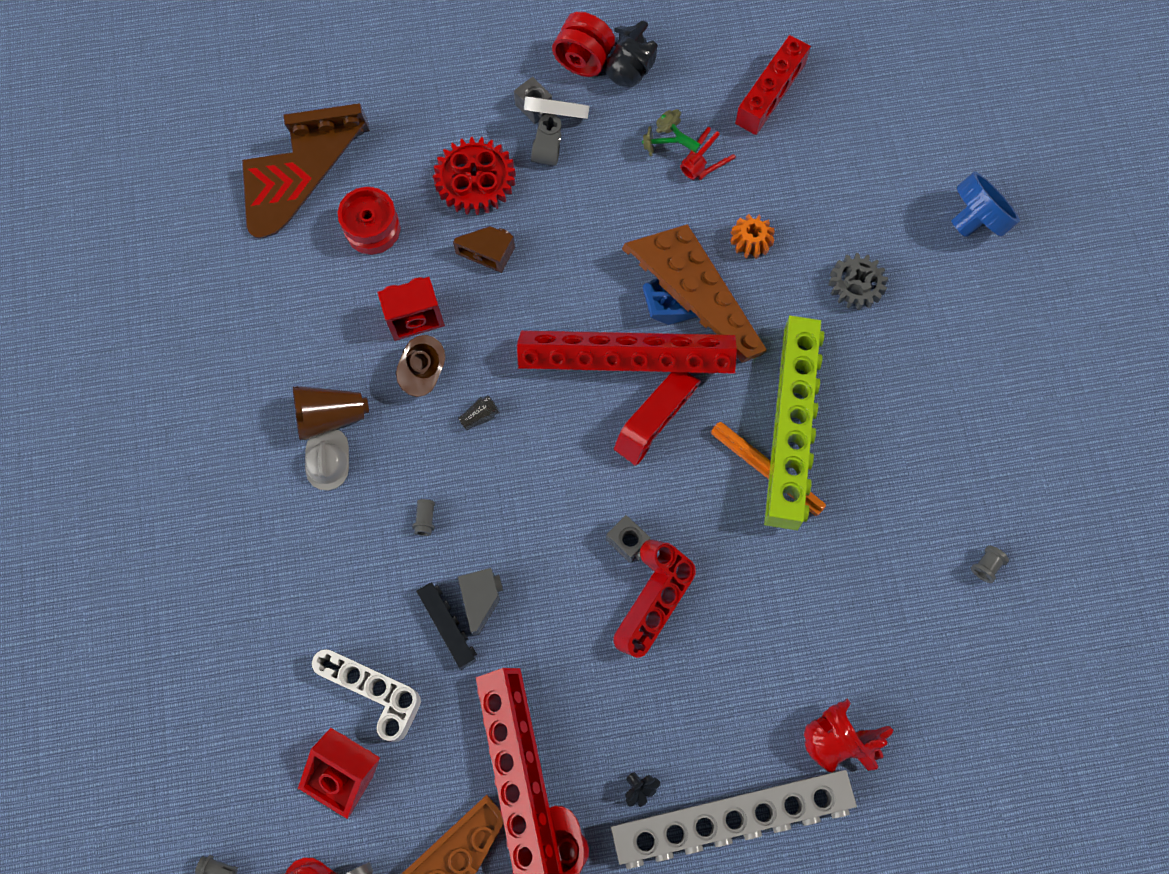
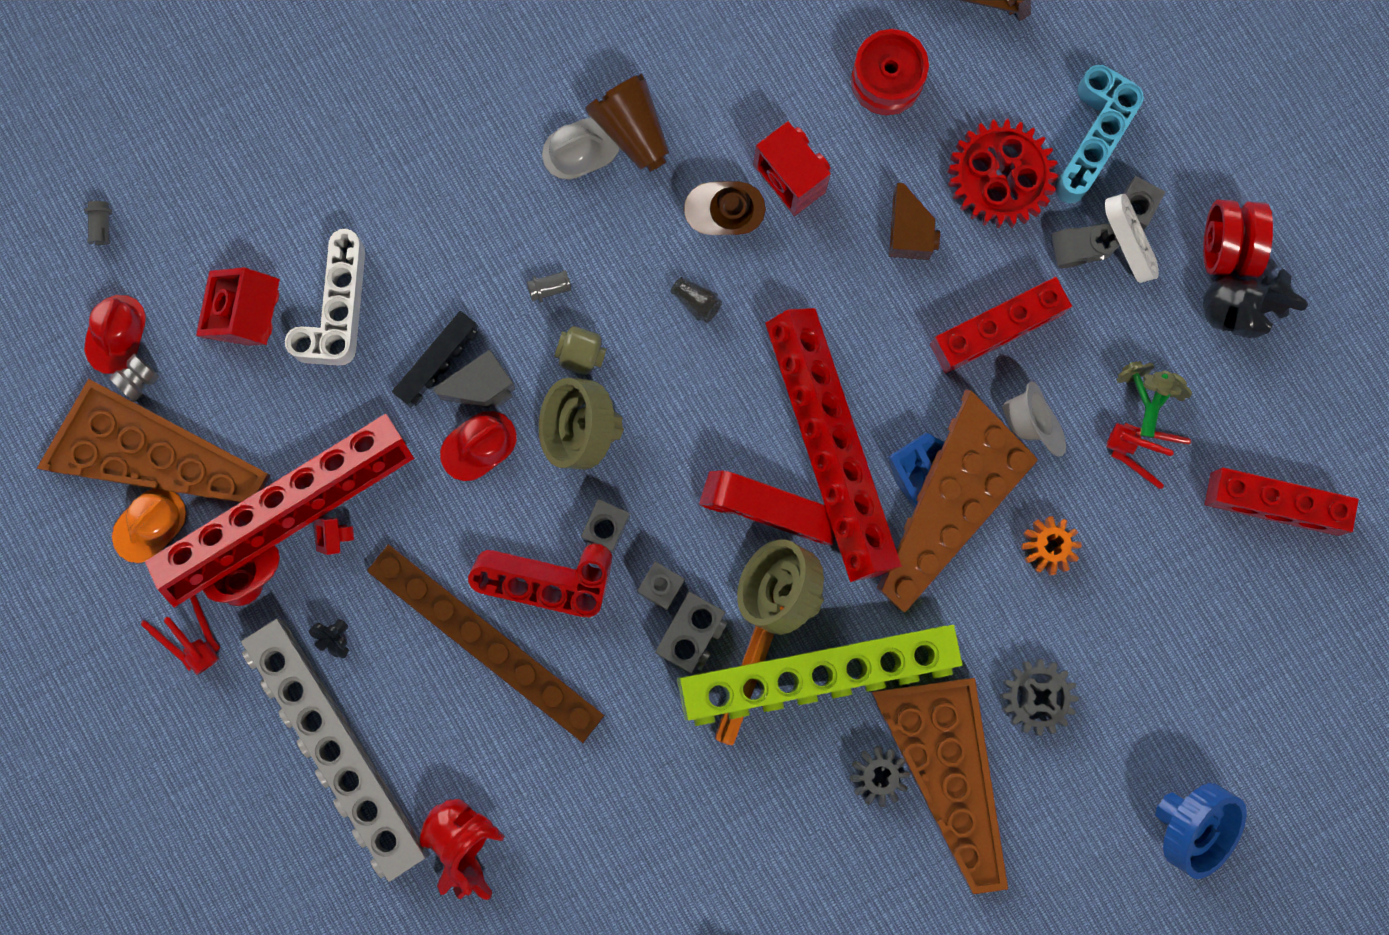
camera: 65 degrees right, 10 degrees up
(476, 110) = (1096, 139): none -> medium azure beam
(484, 510) = (580, 350): none -> olive head
(527, 617) = (478, 445): none -> red piece
(550, 518) = (574, 435): none -> olive piece
(556, 759) = (330, 534): none -> red tile
(583, 214) = (1000, 325): none -> red brick
(657, 217) = (1034, 420): none -> light grey piece
(684, 666) = (485, 643): none -> reddish brown plate
(689, 513) = (661, 586): none -> dark grey brick
(726, 508) = (683, 629): none -> dark grey brick
(731, 411) = (790, 578): none -> olive piece
(878, 415) = (868, 774): none -> dark grey gear
(879, 357) = (946, 753): none -> dark orange wing

